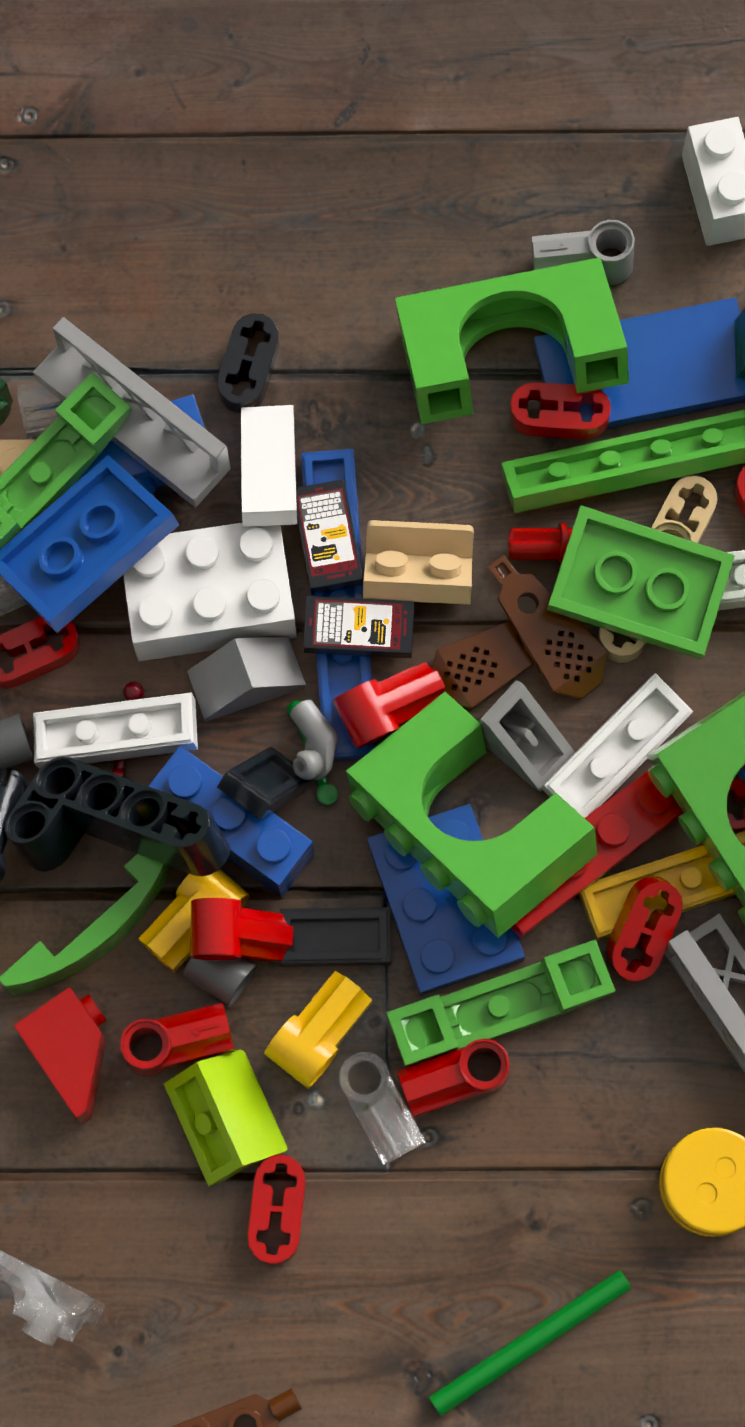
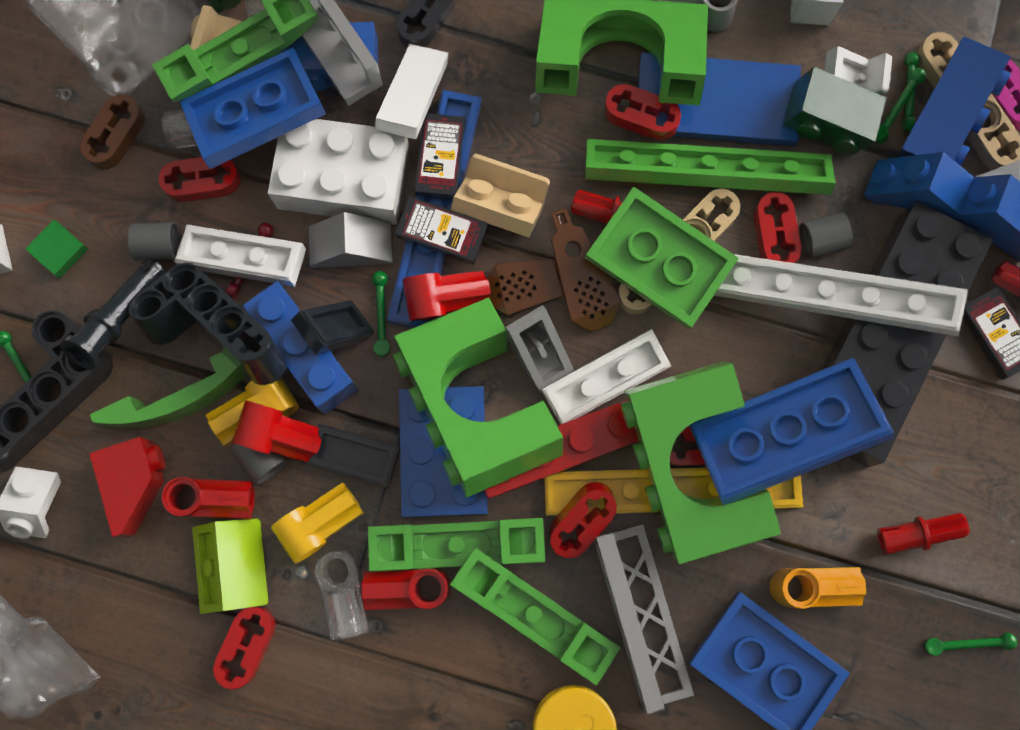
camera: 15 degrees right, 5 degrees up
(320, 744) = (386, 308): light grey arm -> none
(623, 1062) = (535, 616): none -> bright green slope

